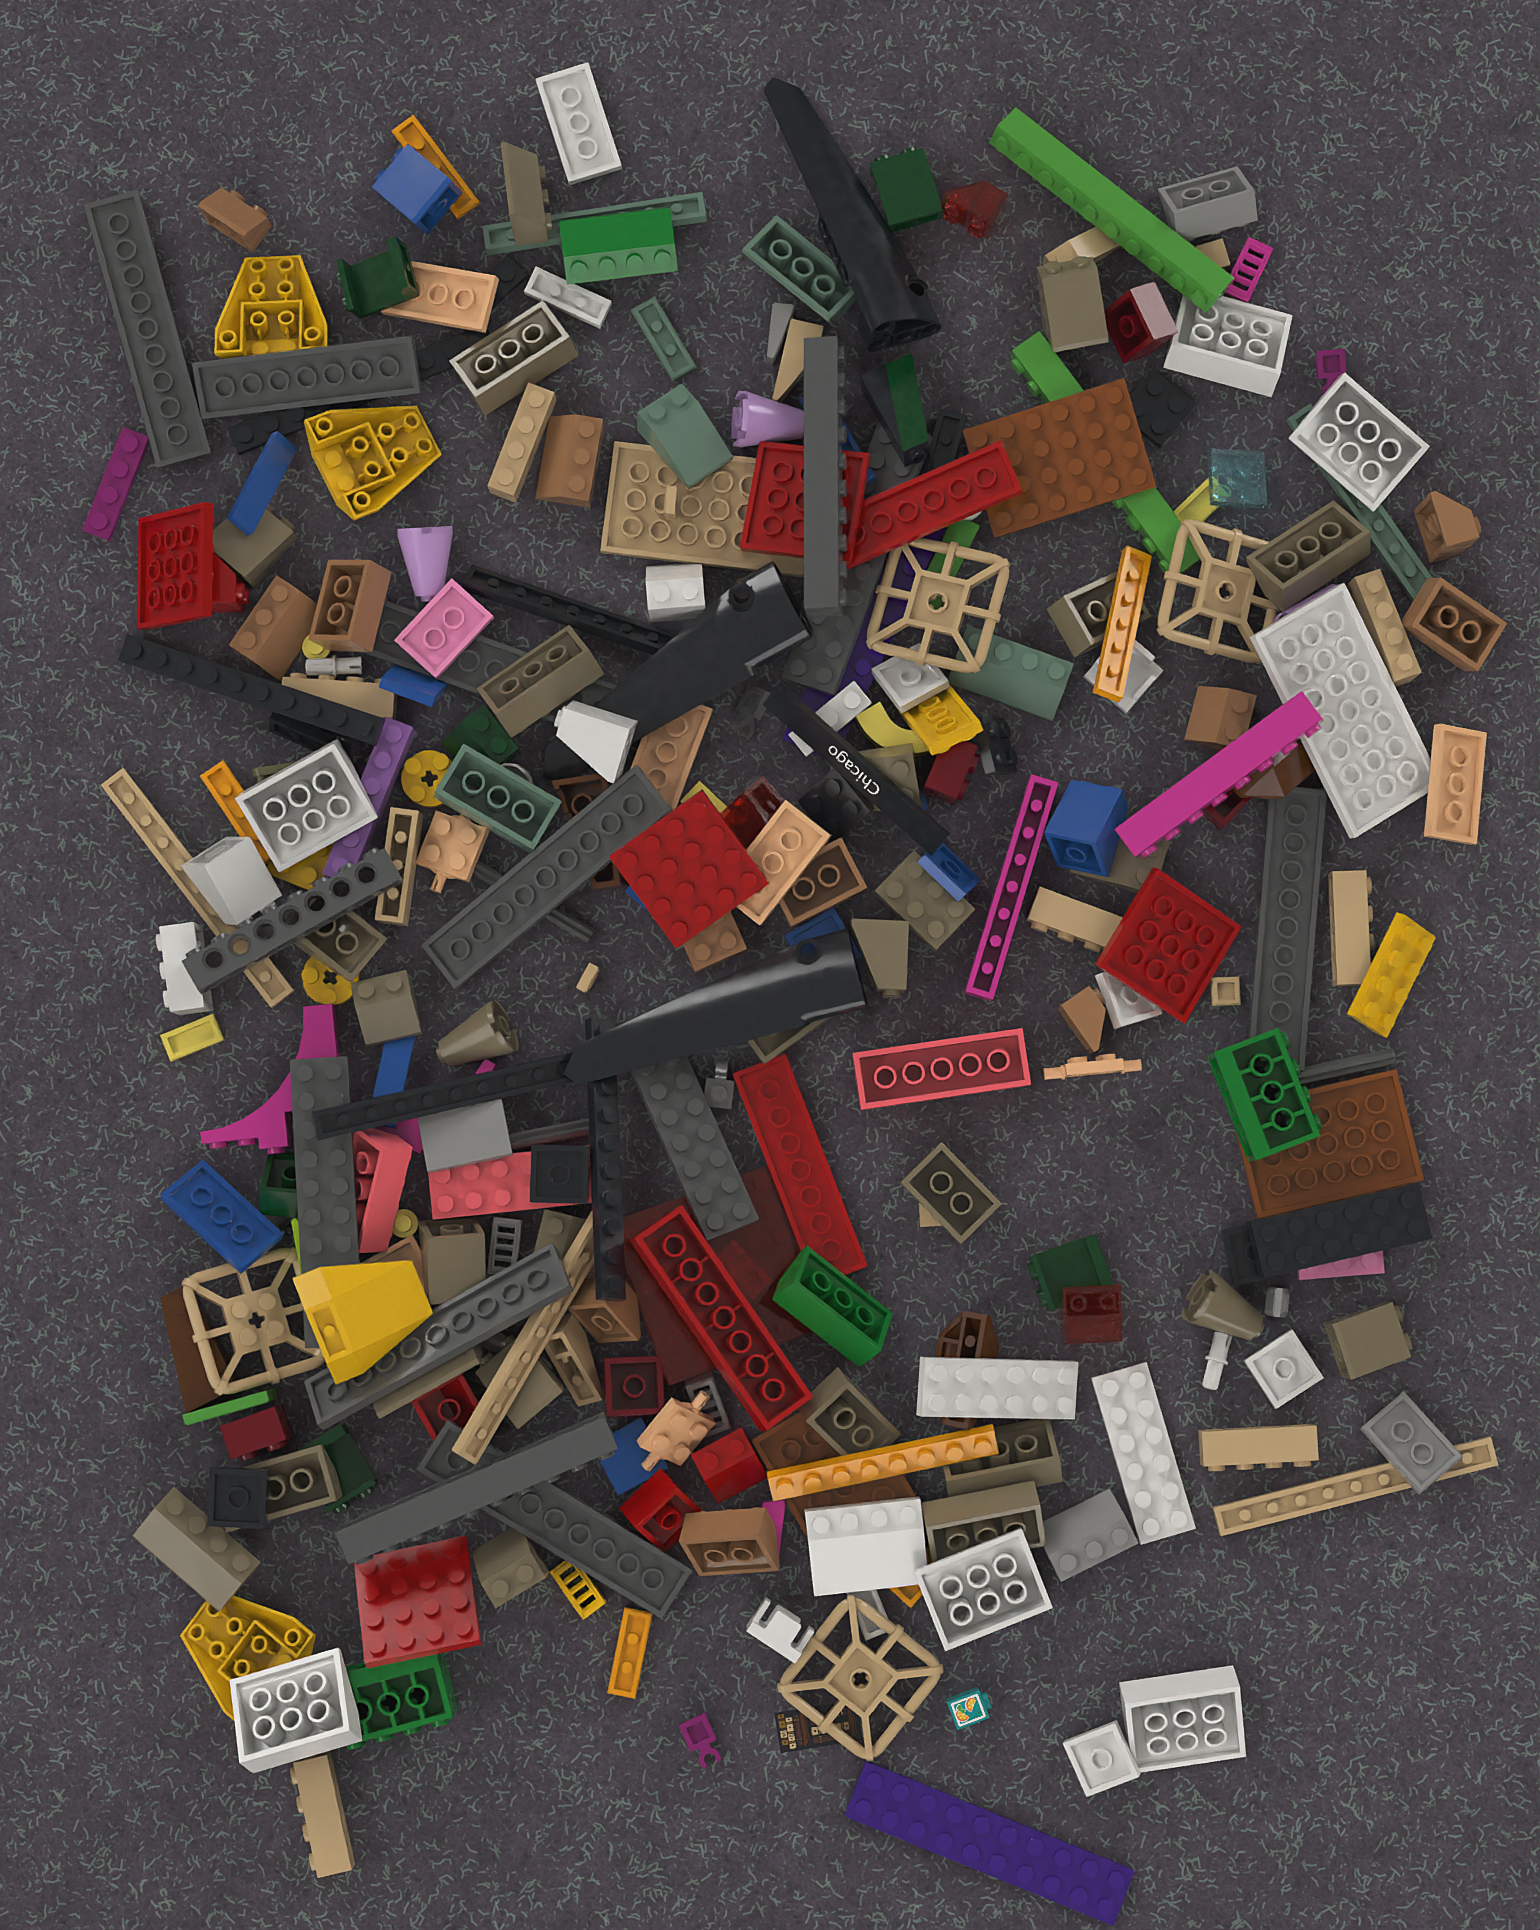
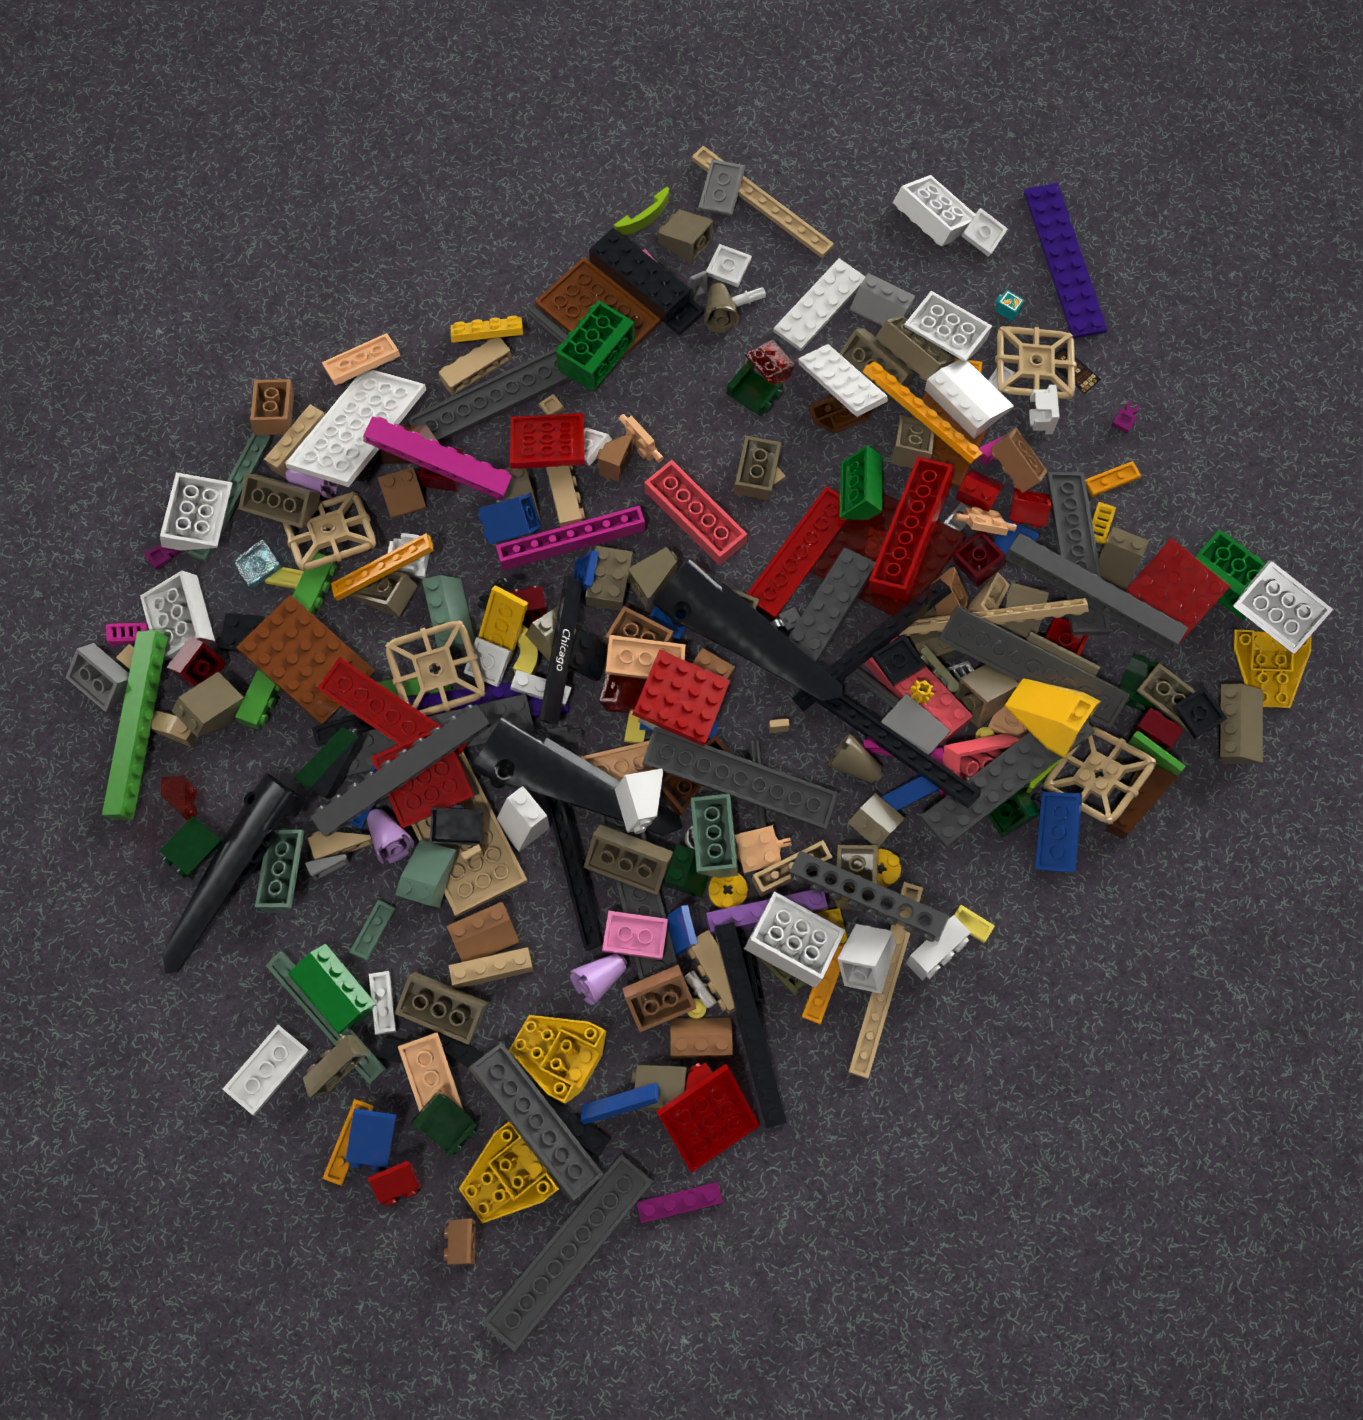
camera: 125 degrees left, 15 degrees down
(271, 1121) = (985, 845): dark pink arch -> none
(323, 1814) = (1323, 565): tan brick -> none
(350, 186) = (395, 1183): none -> red slope
(491, 1175) = (921, 692): none -> yellow gear
(516, 1218) = (940, 671): none -> olive plate
(716, 505) = (456, 825): none -> black container
(1258, 1445) = (776, 253): tan brick -> none
(1436, 1271) = (628, 225): none -> lime slope
(1445, 527) = (219, 437): medium nougat slope -> none

